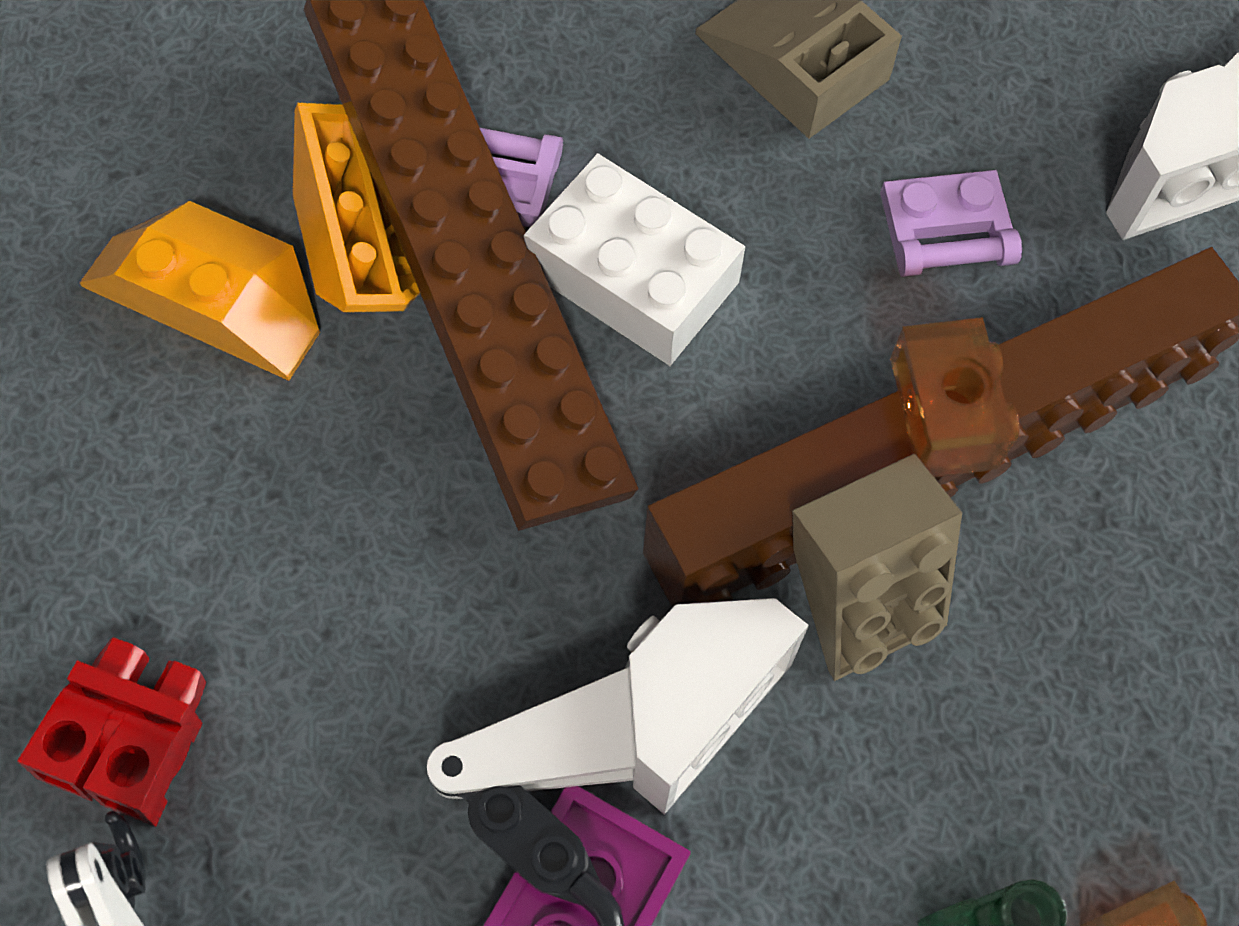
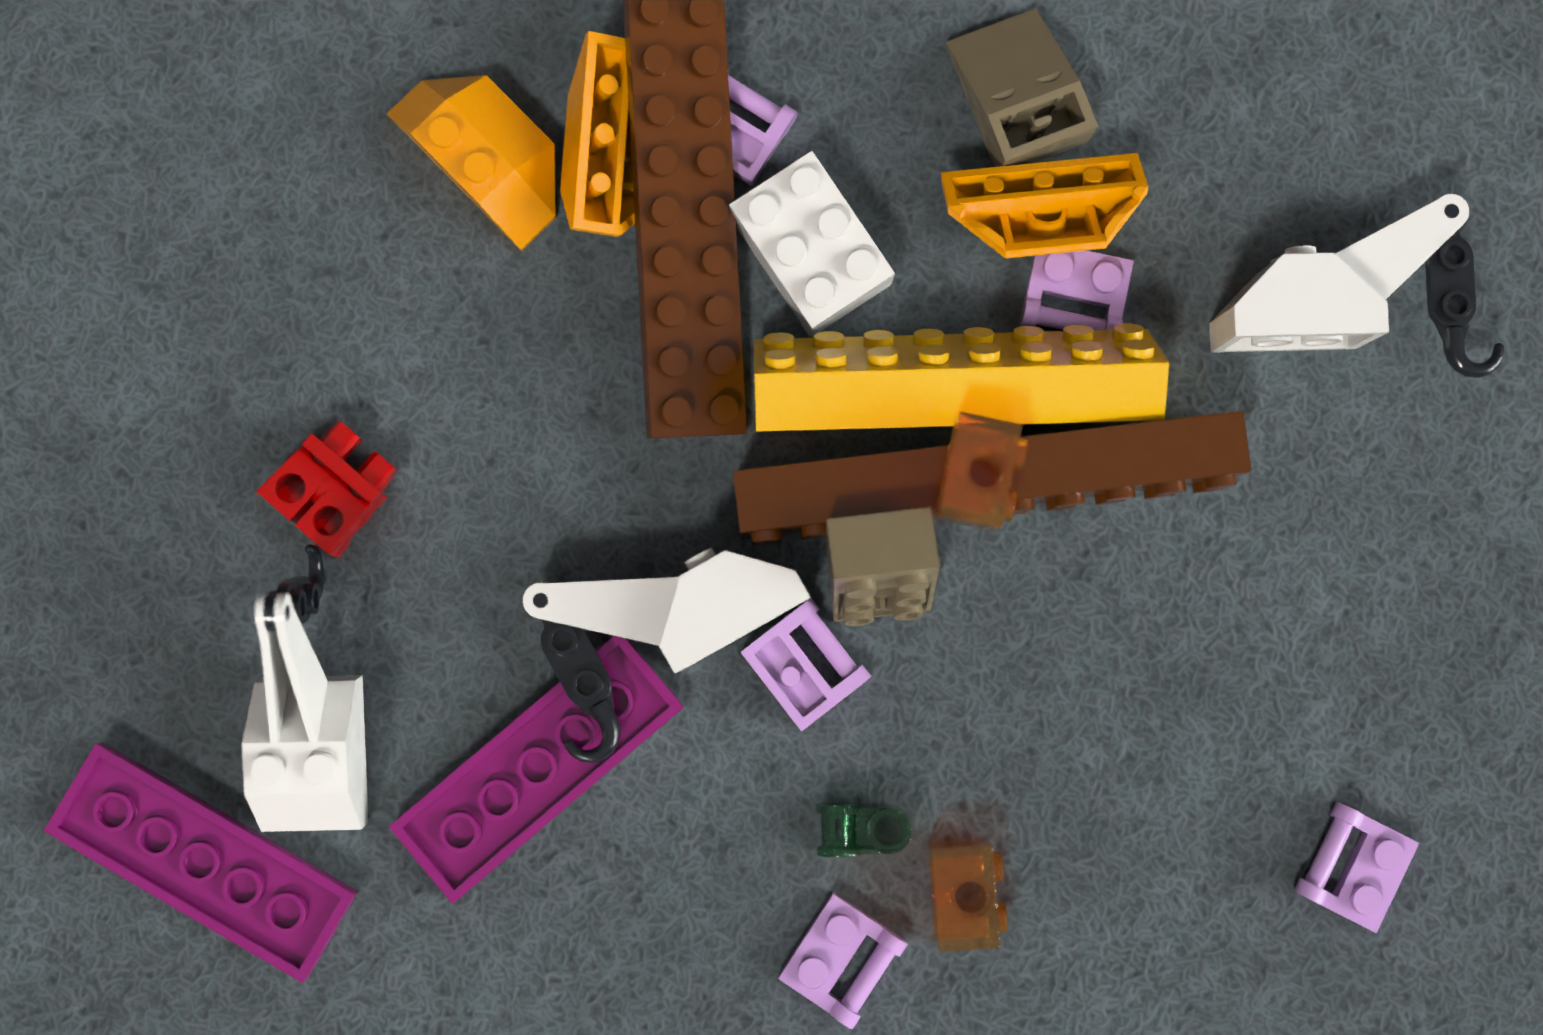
camera: 20 degrees right, 20 degrees up
(812, 759) = (793, 676): none -> lavender plate
(851, 335) = (936, 375): none -> yellow brick
(880, 128) = (1047, 203): none -> light orange wedge

